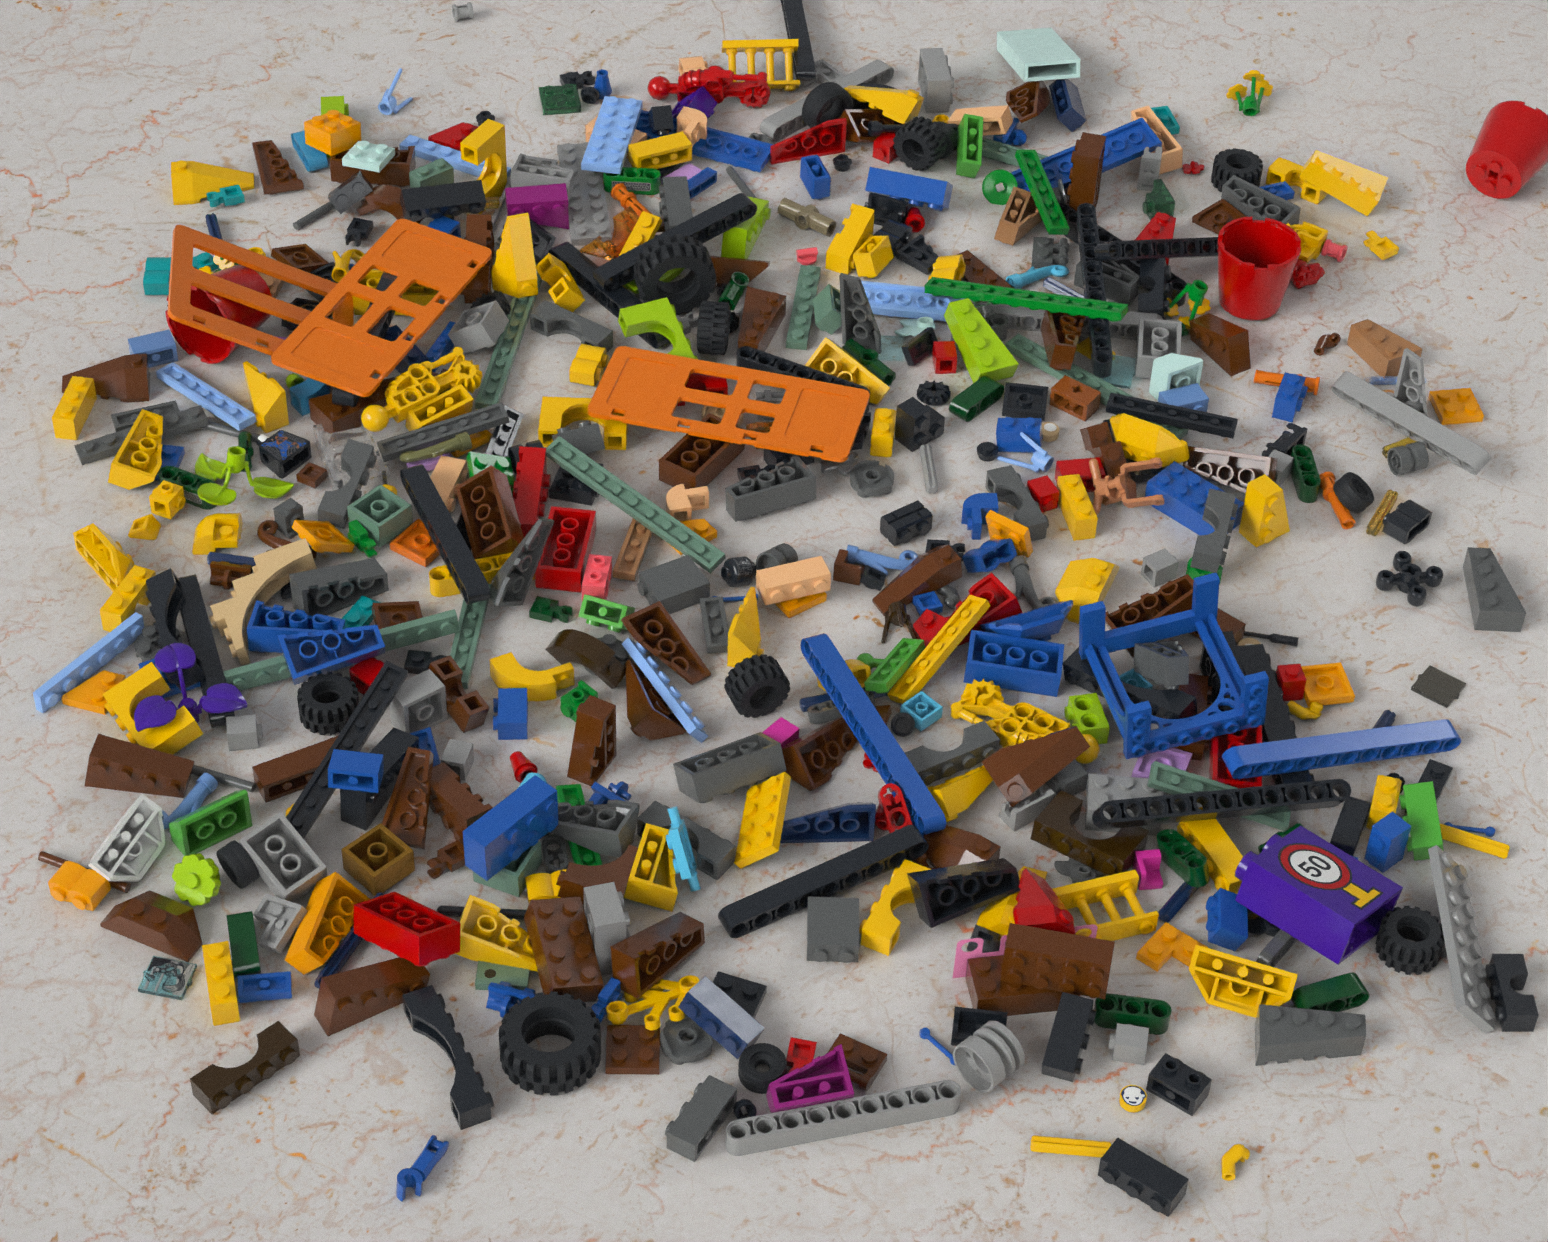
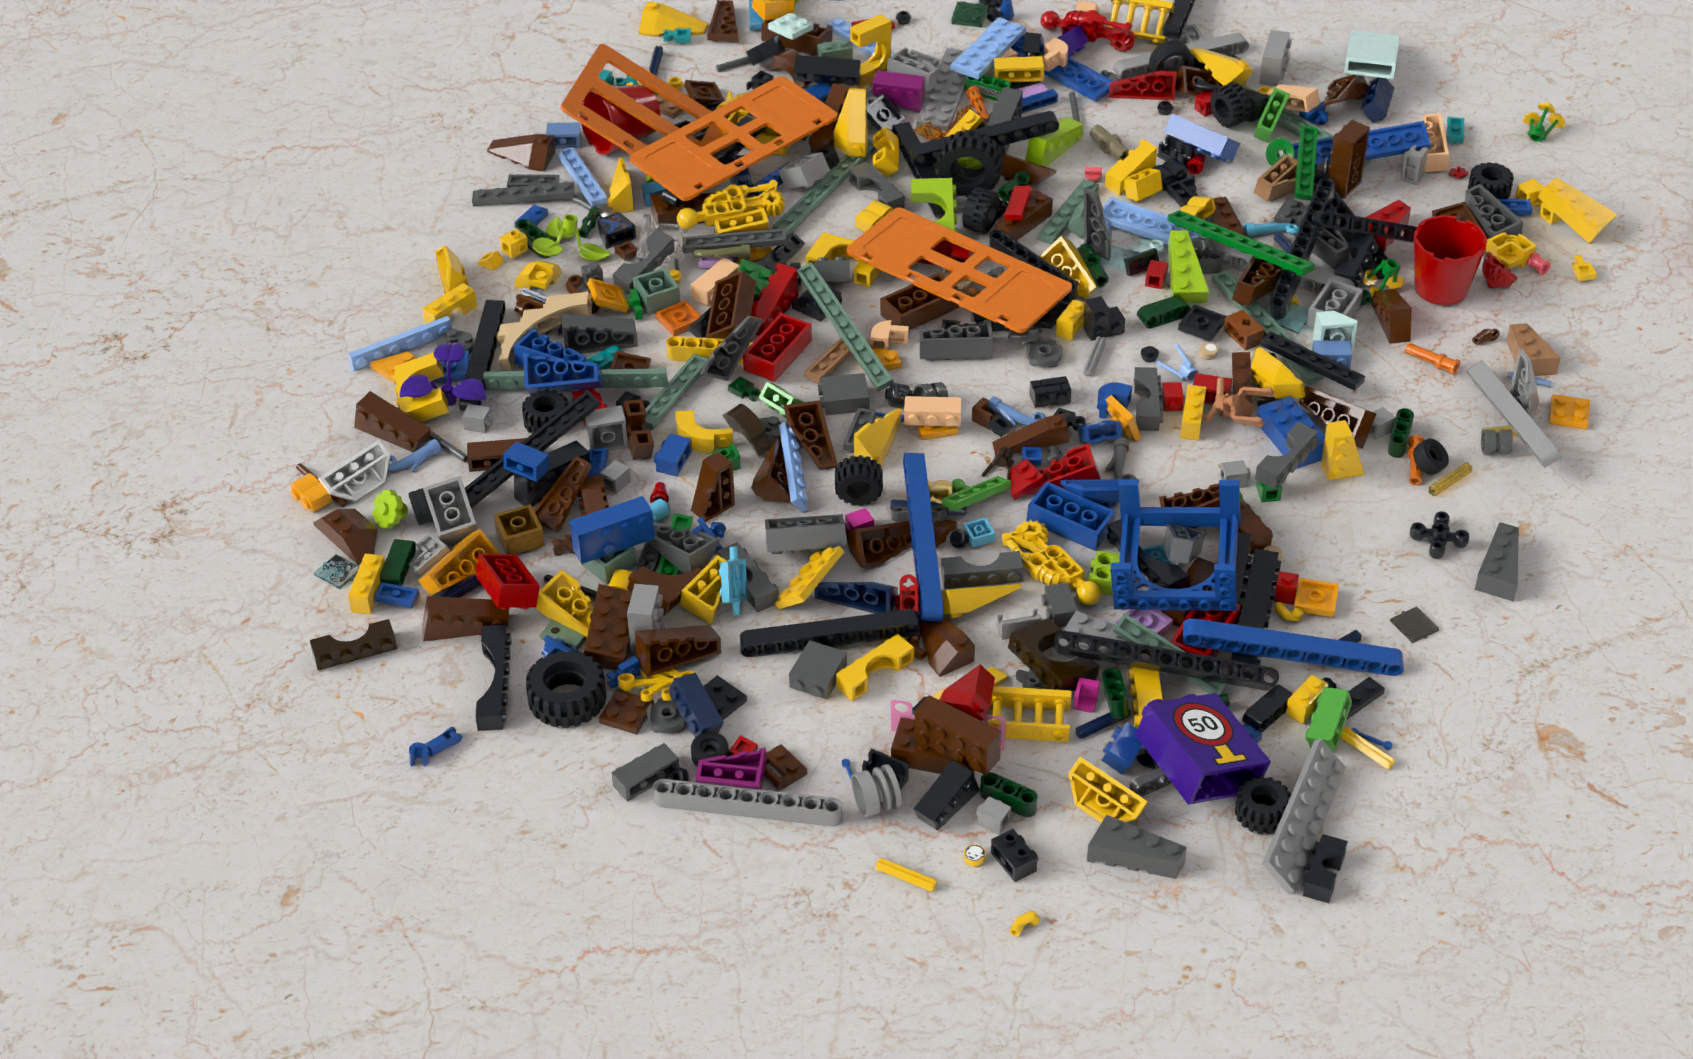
camera: 25 degrees right, 0 degrees up
(74, 408) = (486, 164): yellow brick -> none
(140, 453) = (511, 204): yellow wedge -> none
(166, 597) = (470, 312): black arch -> none
(212, 823) = (419, 473): bright green slope -> none
(445, 534) = (690, 314): black beam -> none
(597, 576) = (789, 373): coral brick -> none
(753, 309) = (1018, 203): none -> red tile
(815, 177) = (1133, 113): blue brick -> none
(926, 396) = (1139, 301): black gear -> none
(939, 649) = (1017, 488): yellow plate -> none
(959, 889) = (925, 666): black wedge -> none
(1009, 431) = (1188, 343): blue brick -> none
(1029, 765) = (1029, 590): reddish brown wedge -> none
(1085, 583) = (1166, 475): yellow wedge -> none
(1142, 1177) = (945, 912): black brick -> none
(1158, 200) = (1409, 192): clear green arch -> none
(1165, 944) = (1066, 754): light orange plate -> none
(1275, 638) = (1299, 552): black piece -> none
(1287, 440) = (1411, 403): black hinge -> none
(1289, 397) = (1424, 370): blue brick -> none
(1332, 994) = (1176, 826): dark green beam -> none
(1387, 842) = (1287, 727): blue brick -> none
(1406, 521) = (1465, 491): black brick -> none

